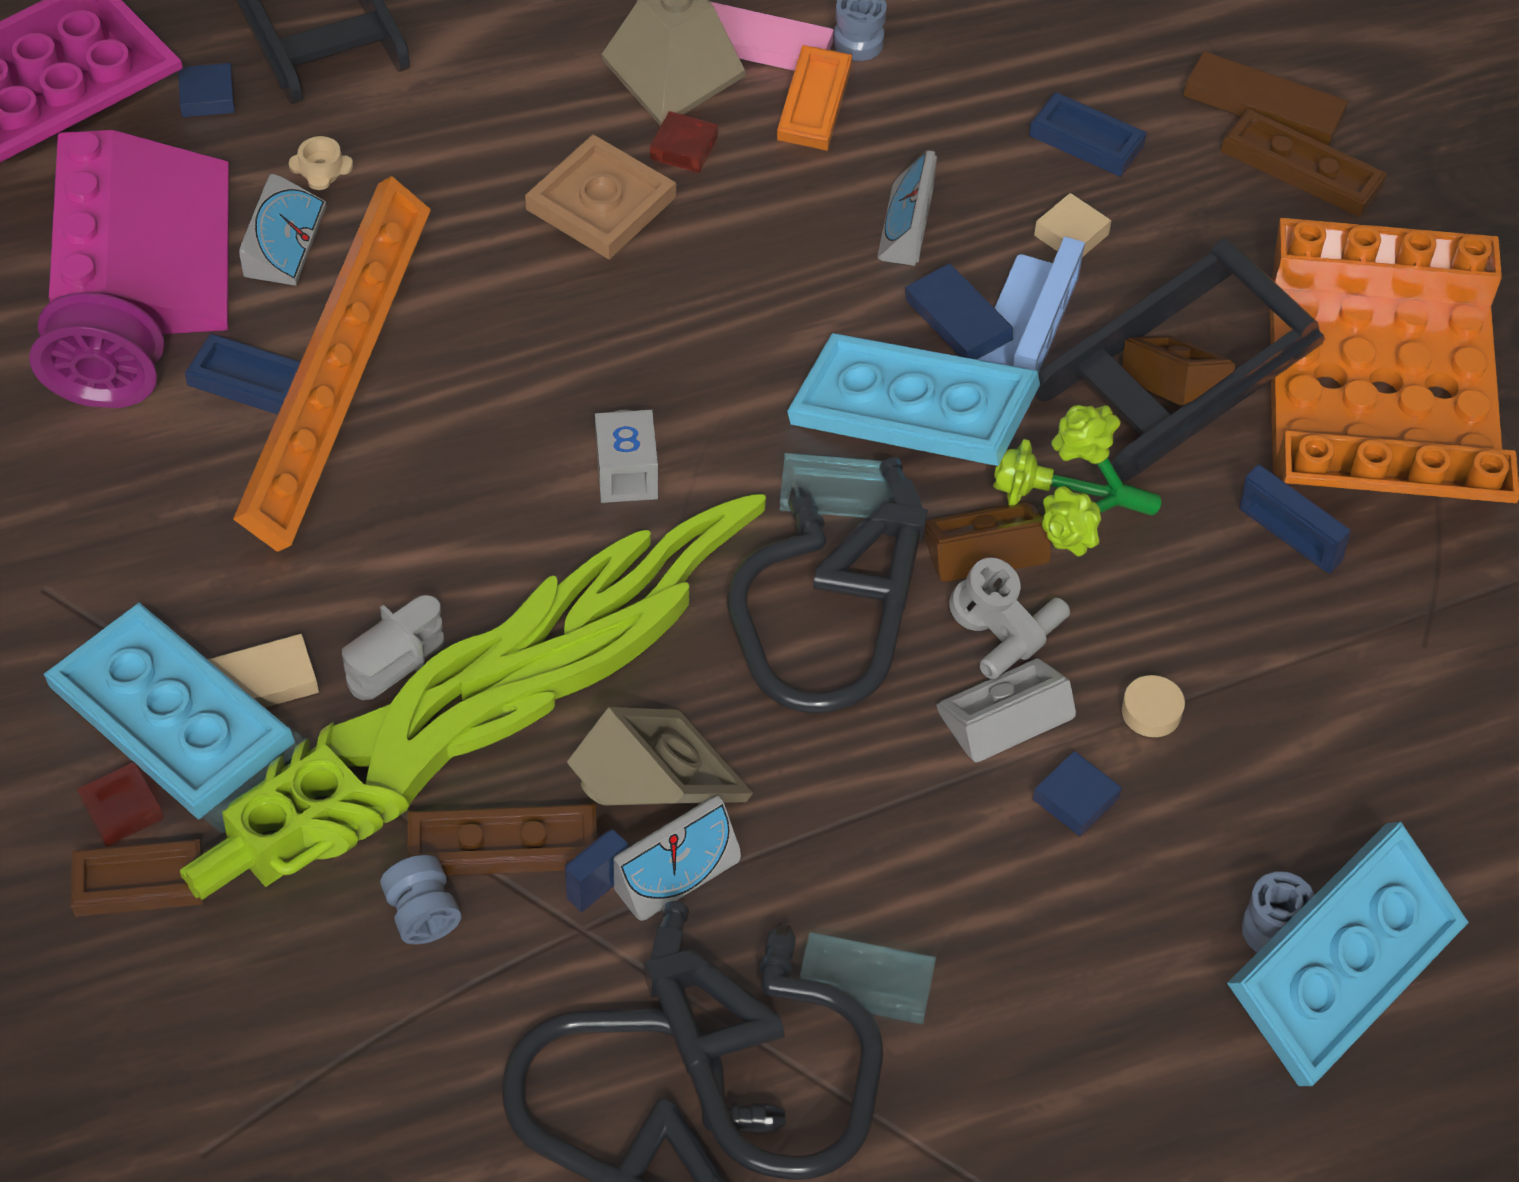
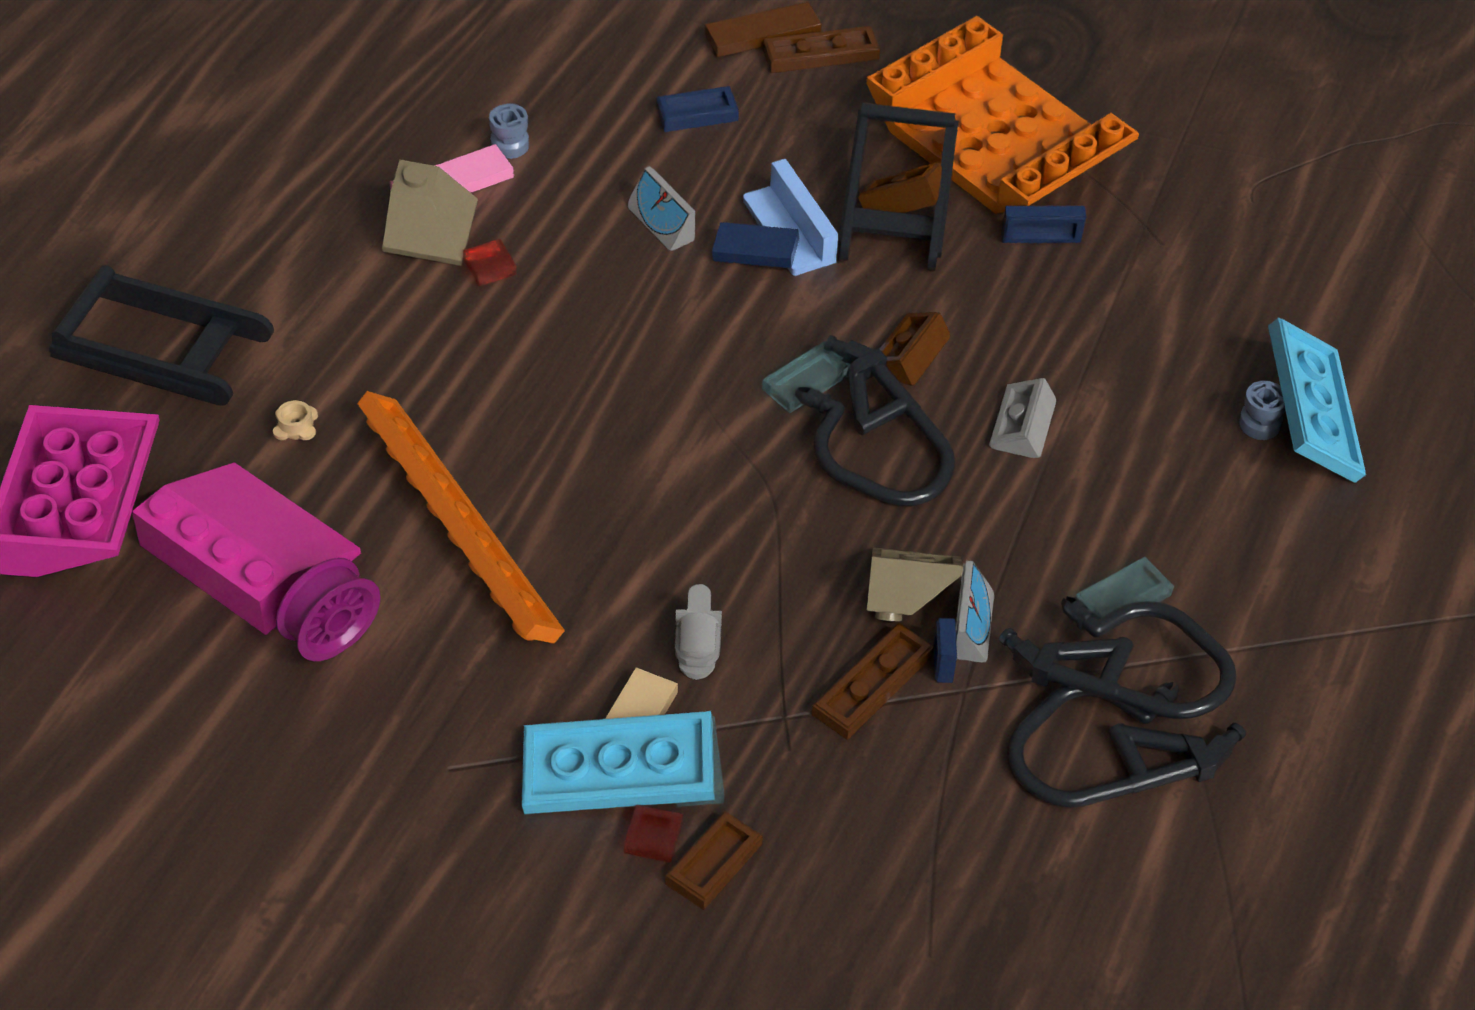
camera: 45 degrees left, 5 degrees down
(206, 90) = (171, 433): dark blue tile -> none
(242, 373) = (412, 564): dark blue tile -> none
(281, 232) = (325, 476): slope -> none
(419, 896) = (880, 738): sand blue wheel -> none
(505, 686) = (764, 707): lime piece -> none
(600, 196) = (487, 322): medium nougat plate -> none
(626, 456) = (686, 442): light grey brick -> none
(814, 97) = (533, 187): orange tile -> none
(914, 398) = (796, 301): medium azure tile -> none
(1003, 614) = (969, 372): light grey piece -> none
(1069, 516) = (955, 297): lime plant -> none
(1073, 220) = (752, 161): tan tile -> none
(1077, 793) = (1106, 431): dark blue tile -> none
(1153, 706) = (1087, 364): tan tile -> none

